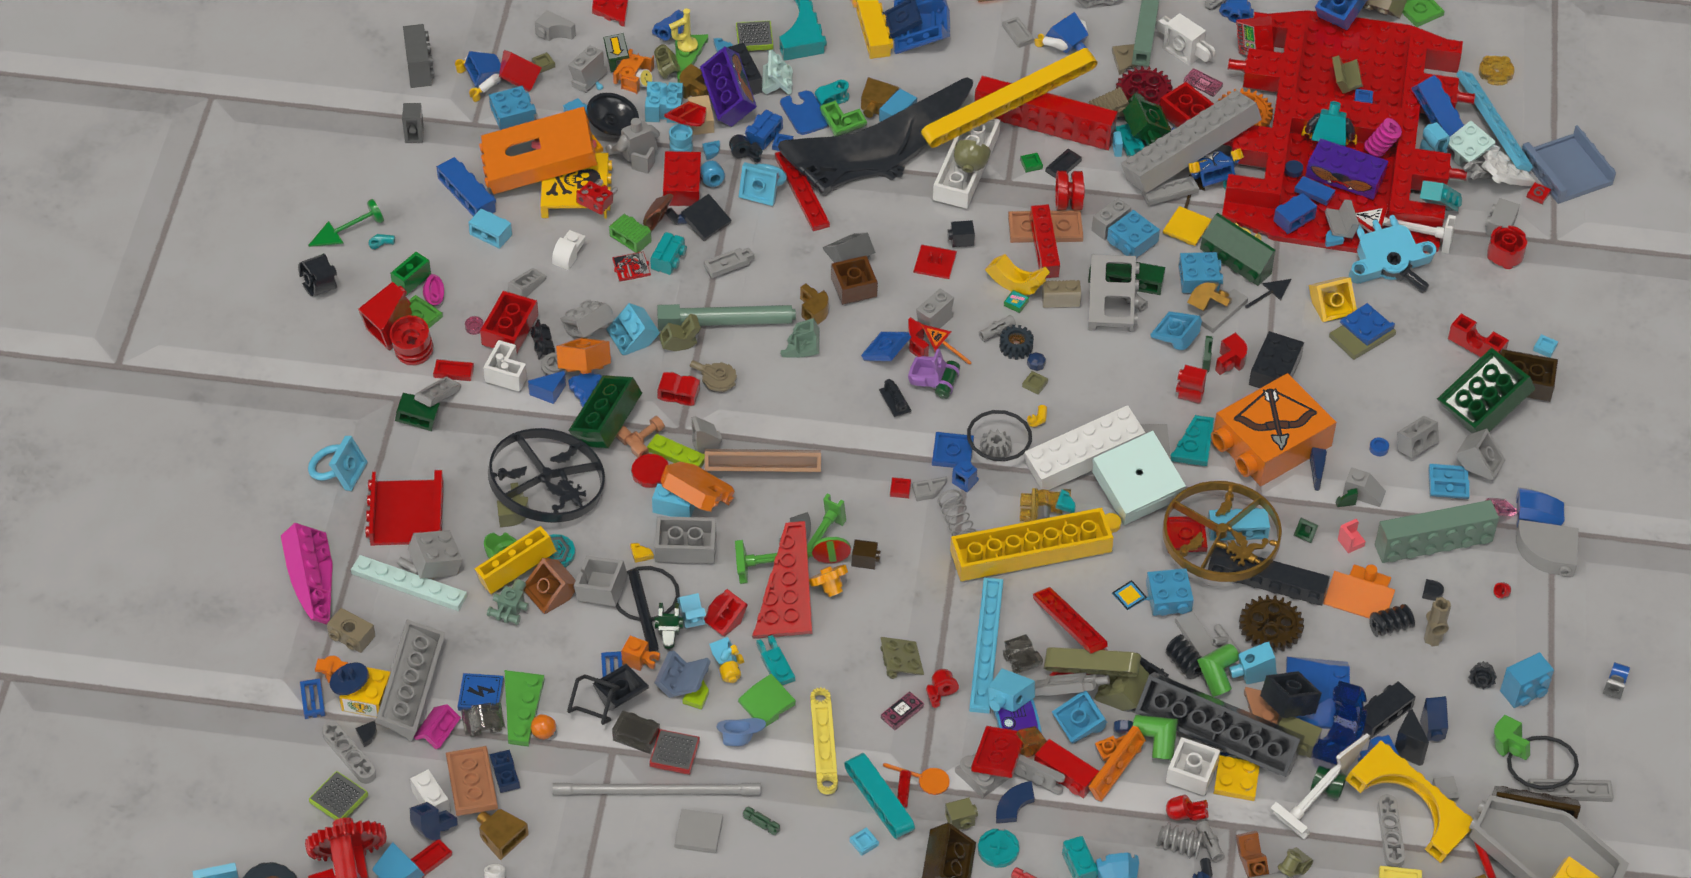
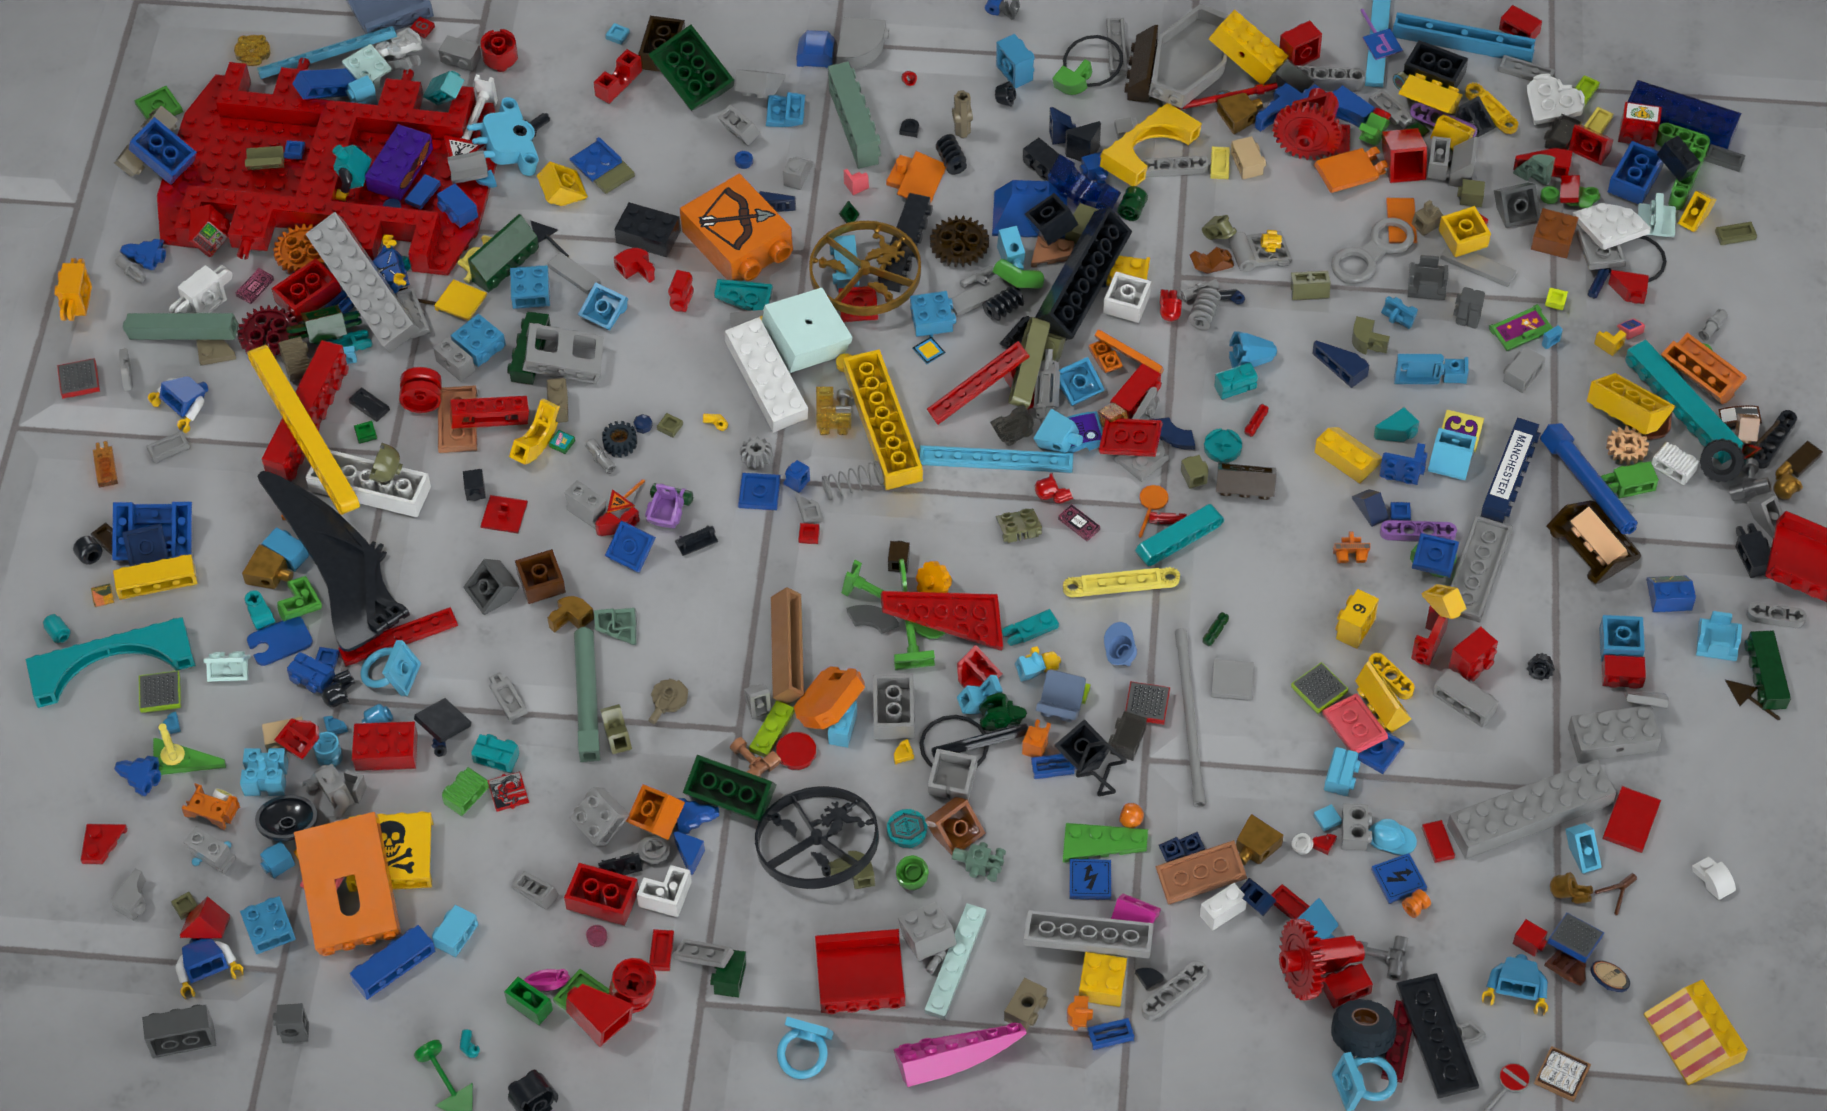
camera: 90 degrees left, 5 degrees up
(338, 796) = (1231, 991): tile -> none
(349, 678) = (1101, 985): dark blue piece -> none
(482, 718) = (1128, 871): clear smoke cylinder -> none
(515, 560) = (932, 853): yellow brick -> none
(566, 249) = (490, 849): white brick -> none
(596, 197) = (422, 819): red piece -> none
(615, 49) = (178, 824): panel -> none
(632, 329) = (608, 773): medium azure slope -> none
(657, 211) = (442, 758): copper slope -> none
(666, 61) = (201, 772): olive piece -> none
(678, 389) = (688, 730): red brick -> none
(693, 82) = (233, 749): pearl gold brick -> none
(728, 86) = (254, 702): dark purple brick -> none
(752, 73) = (216, 695): black brick -> none
(767, 700) = (1079, 630): bright green slope -> none
(864, 841) = (1228, 548): medium azure tile -> none
(999, 458) = (747, 420): black piece -> none
(1065, 502) = (833, 390): teal tile -> none
(1122, 726) = (1085, 350): dark blue tile -> none
(1163, 732) = (1095, 317): bright green brick -> none
(1205, 292) = (562, 280): pearl gold brick -> none
(1206, 359) = (640, 282): dark green tile -> none
(1344, 761) = (1122, 180): white piece -> none
(1348, 499) = (809, 182): dark green tile -> none
(1383, 137) = (363, 128): dark pink piece -> none
(1503, 507) = (818, 70): clear pink tile -> none

